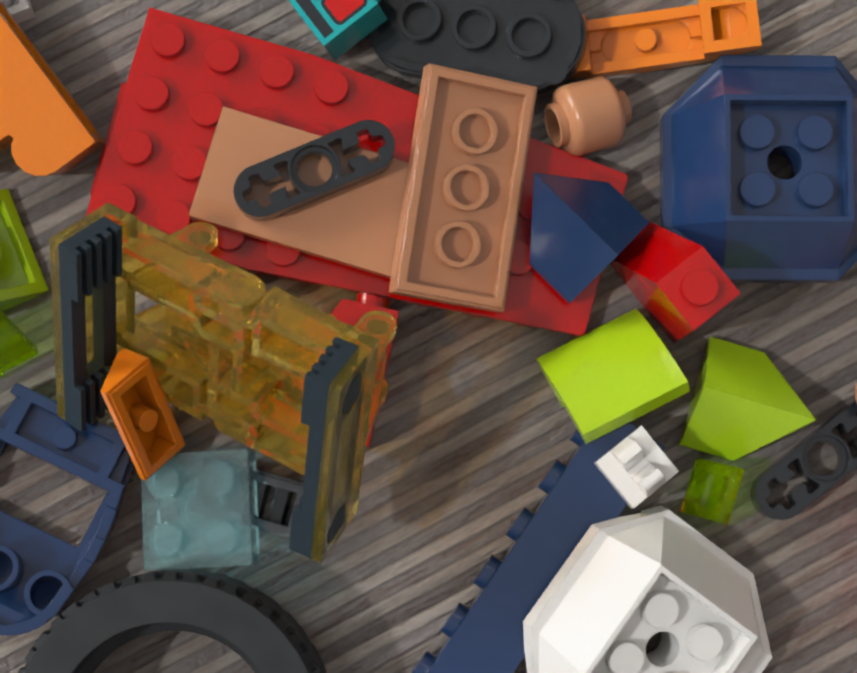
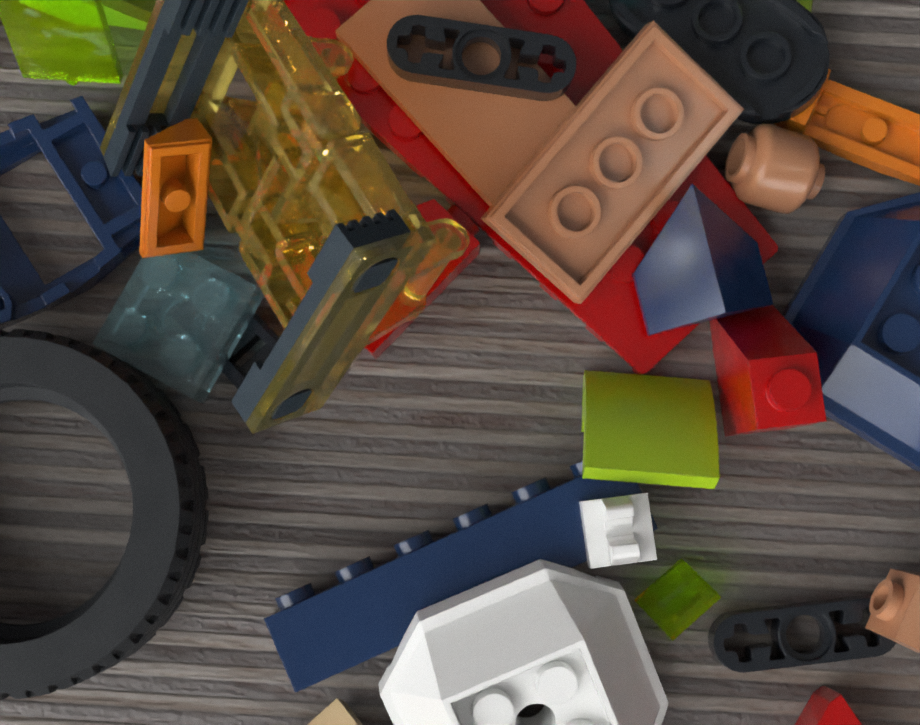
camera: 30 degrees right, 0 degrees up
(740, 403) = (755, 532): lime slope -> none

